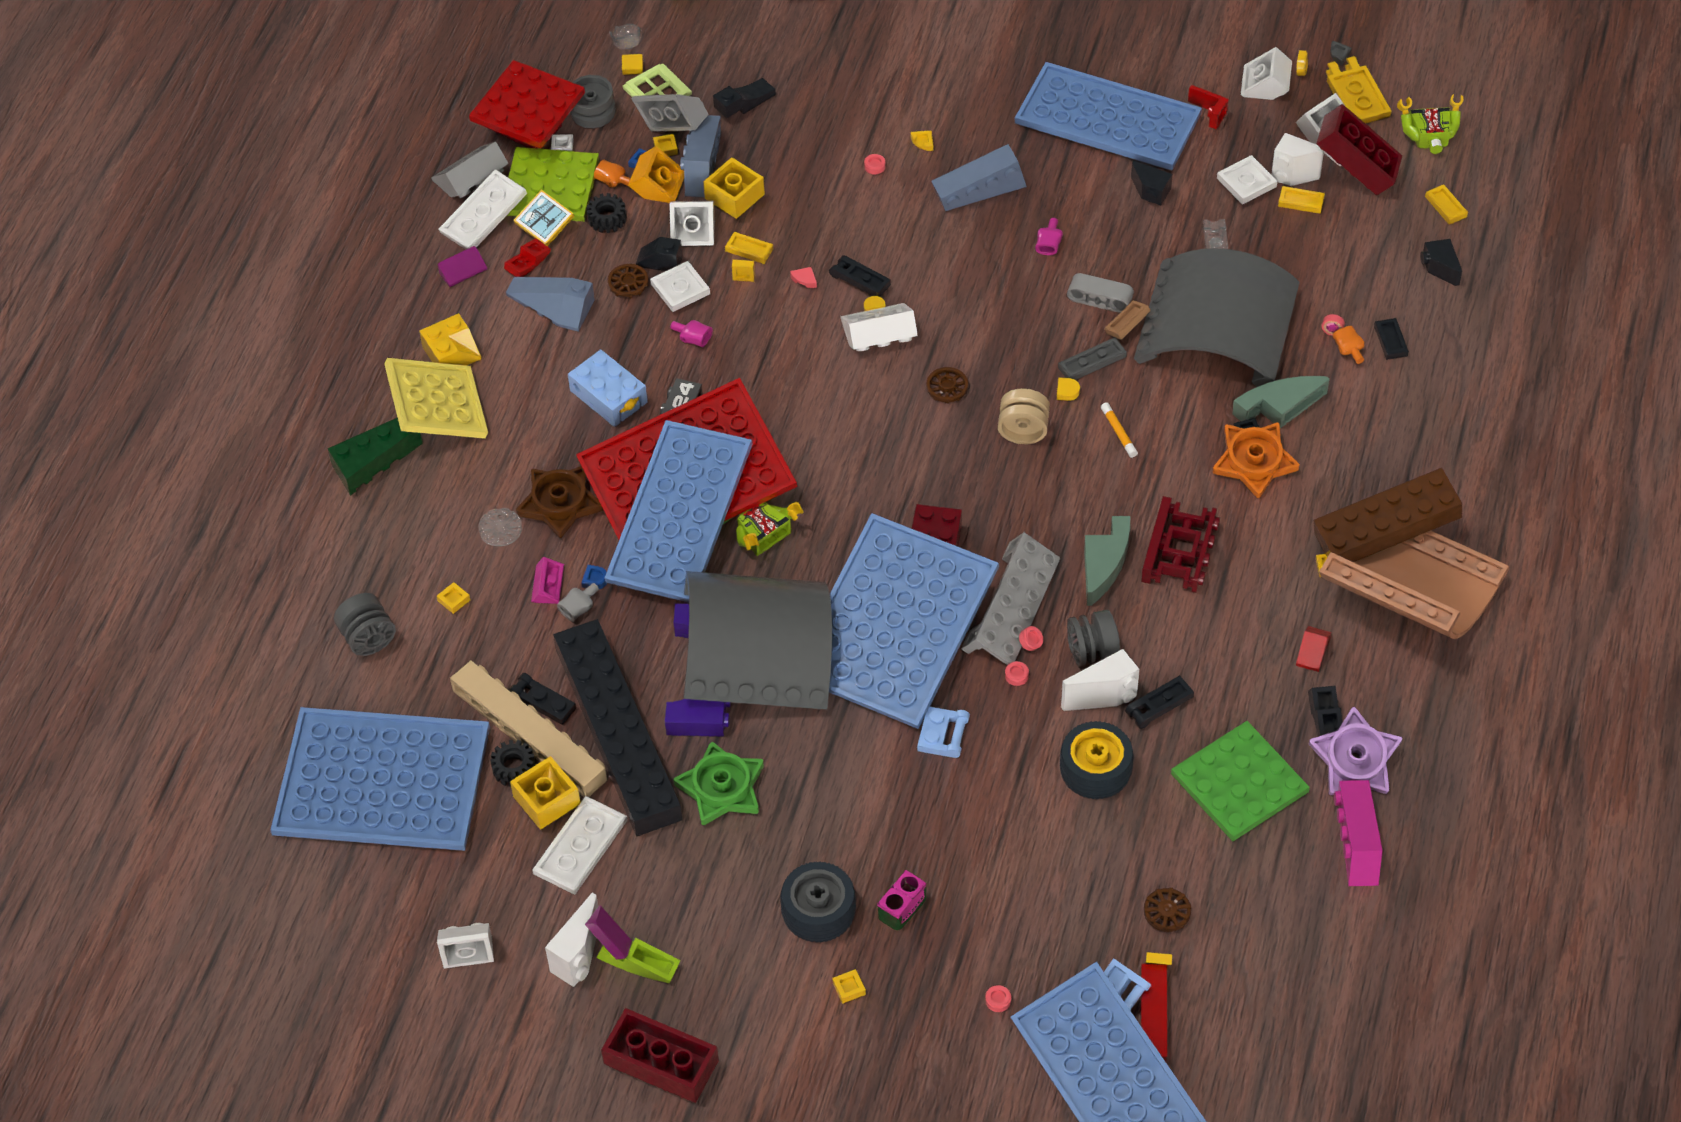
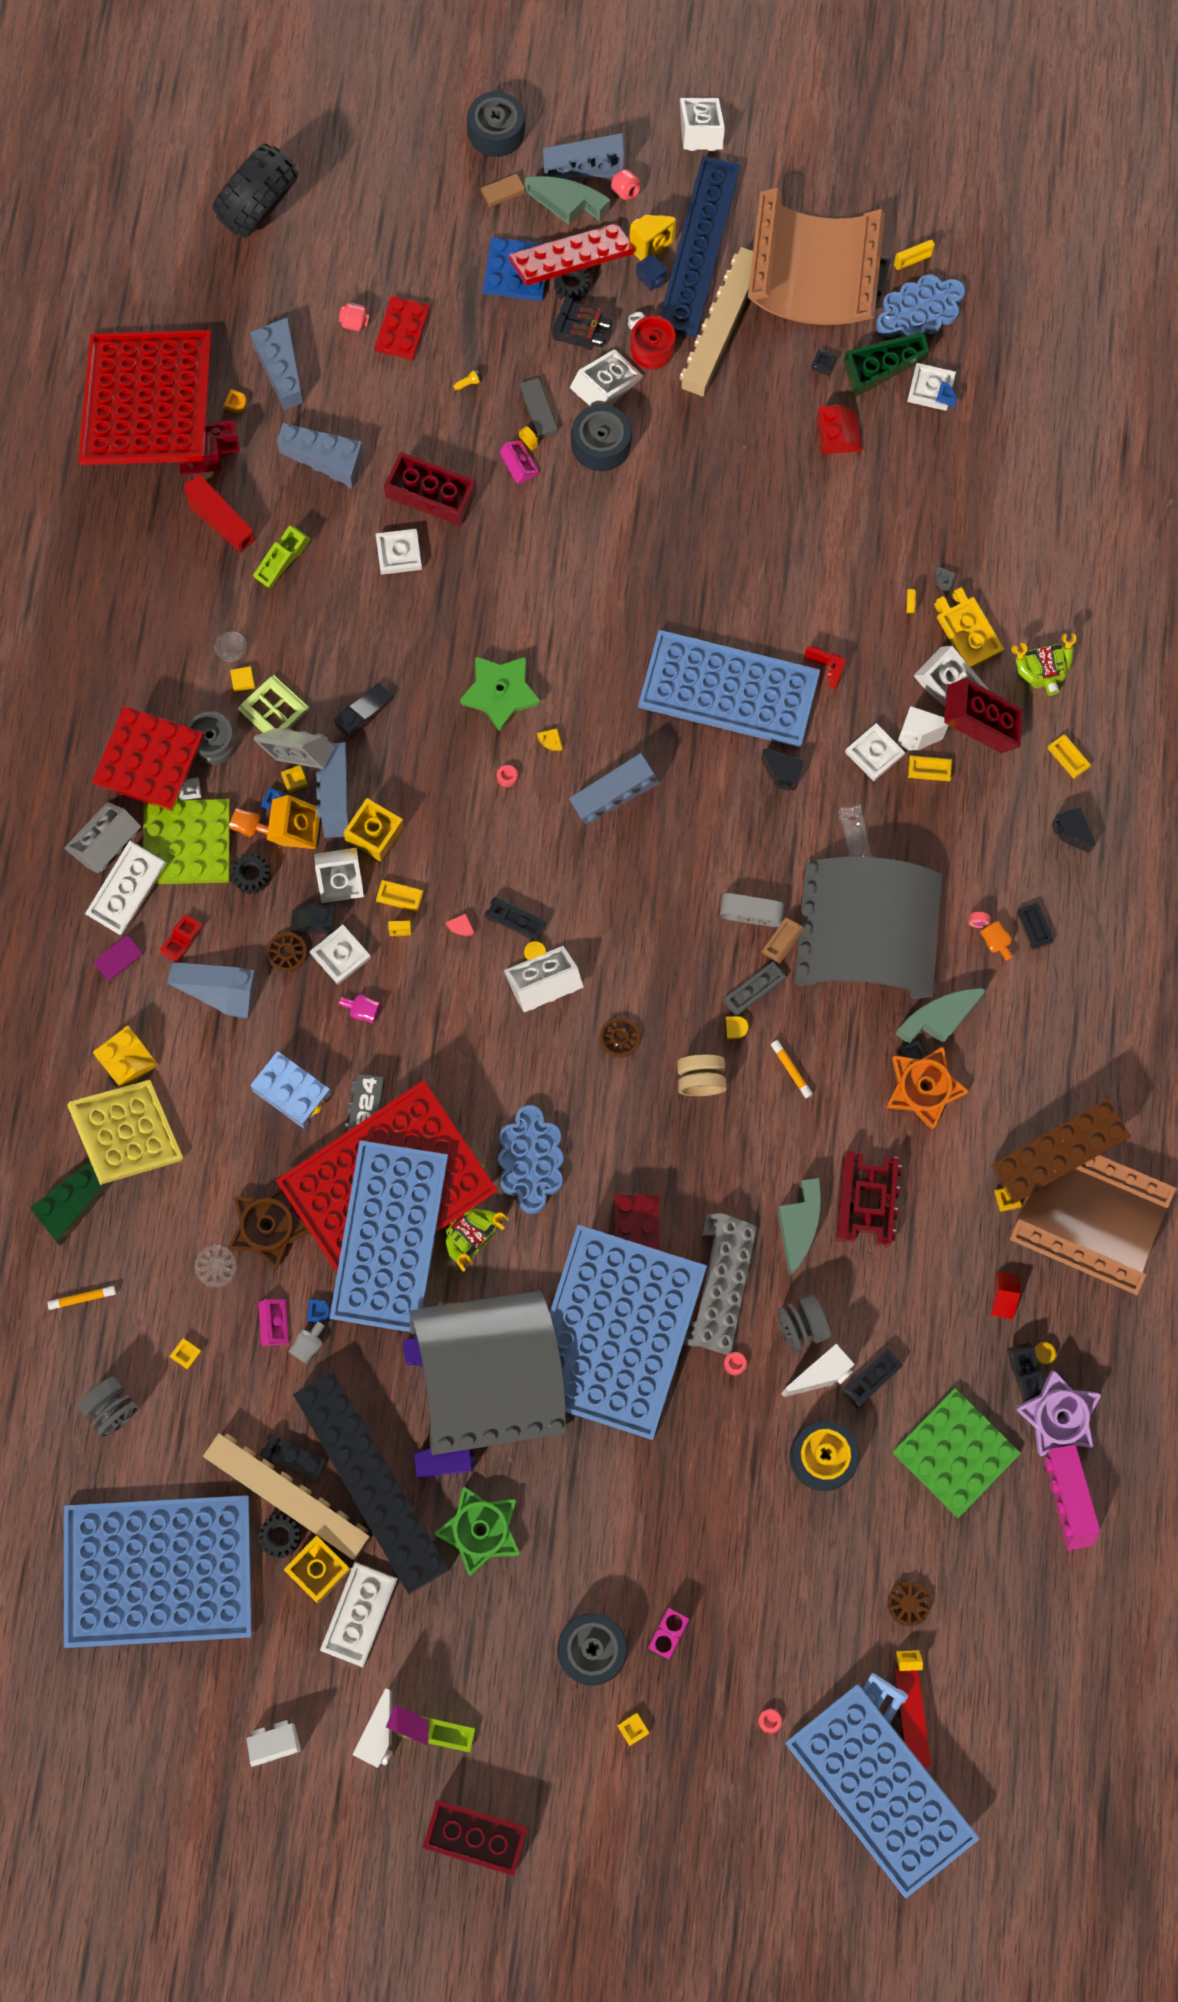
camera: 15 degrees left, 20 degrees up
(360, 538) = (83, 1297): none -> light orange bar
(543, 218) = (189, 890): tile -> none
(837, 473) = (530, 1159): none -> medium blue plate
(880, 94) = (500, 704): none -> bright green plate
(935, 731) = (669, 1439): light blue plate -> none
(1031, 638) = (743, 1325): coral tile -> none
(1049, 238) = (693, 848): dark pink piece -> none
(1267, 76) = (878, 621): white slope -> none
(1348, 700) = (1045, 1353): none -> yellow tile

